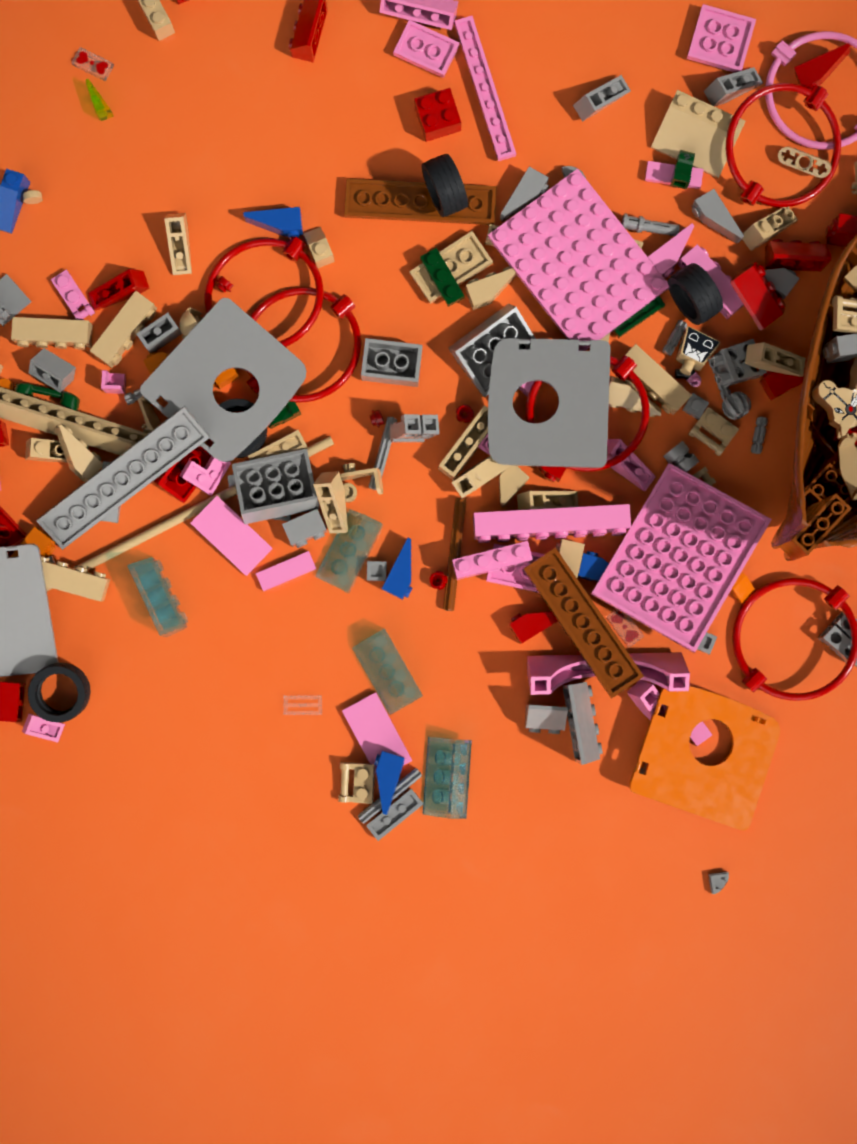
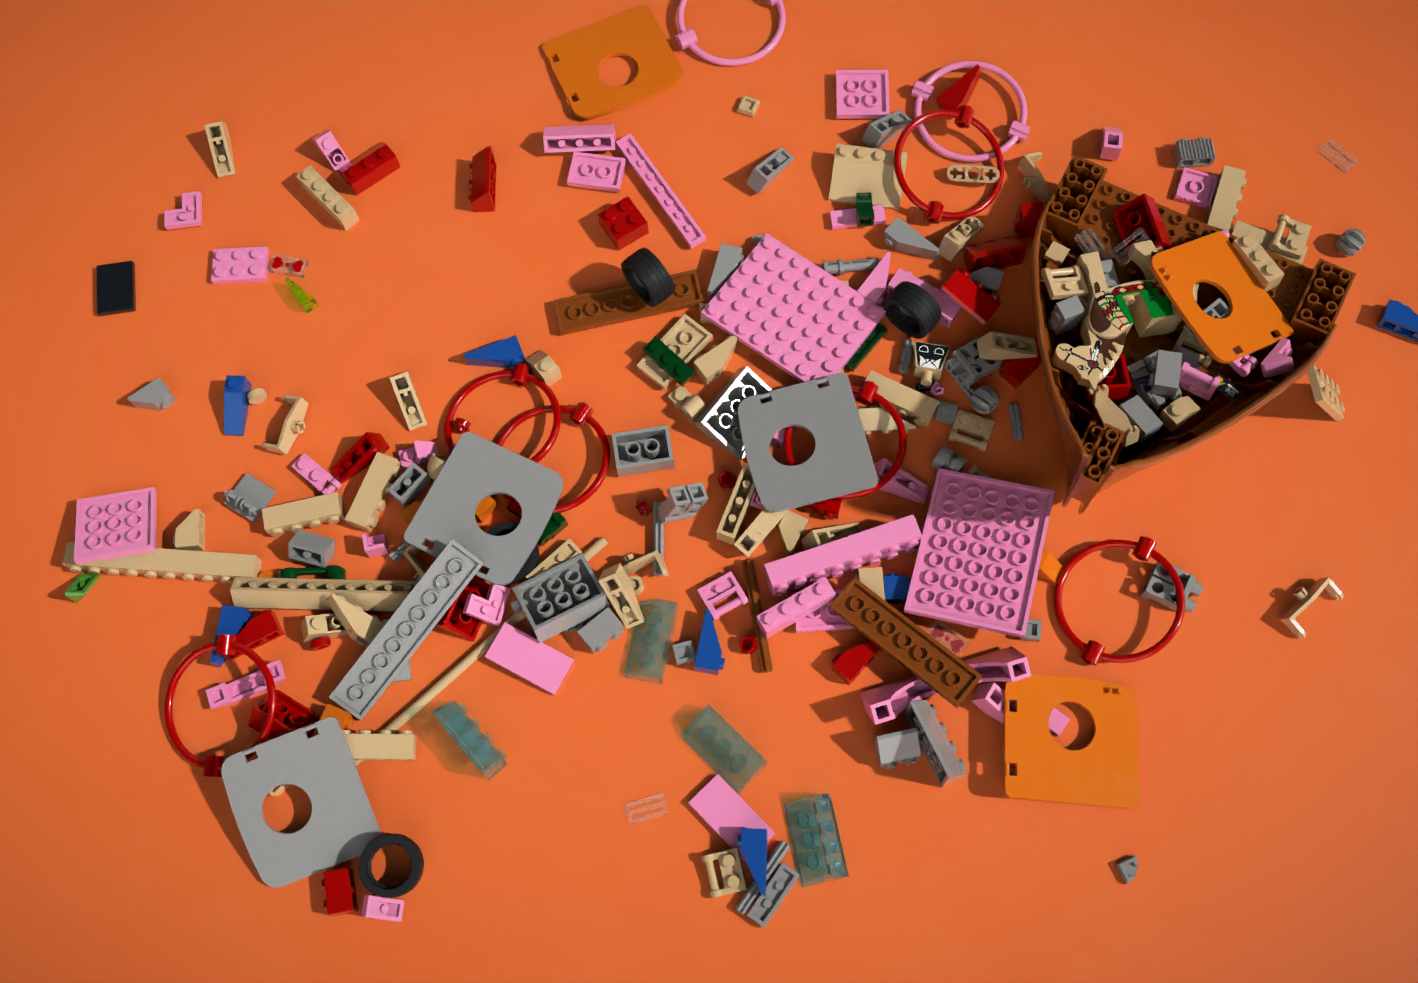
camera: 10 degrees left, 15 degrees down
(41, 465) = (320, 643): none -> red tile
(45, 49) = (240, 265): none -> bright pink plate
(59, 238) = (291, 426): none -> tan piece
(175, 303) = (418, 454): none -> bright pink slope
(286, 571) = (593, 679): bright pink tile -> none
(427, 520) = (719, 590): none -> bright pink plate
(448, 325) = (689, 405): none -> tan plate
(601, 18) = (748, 106): none -> tan tile

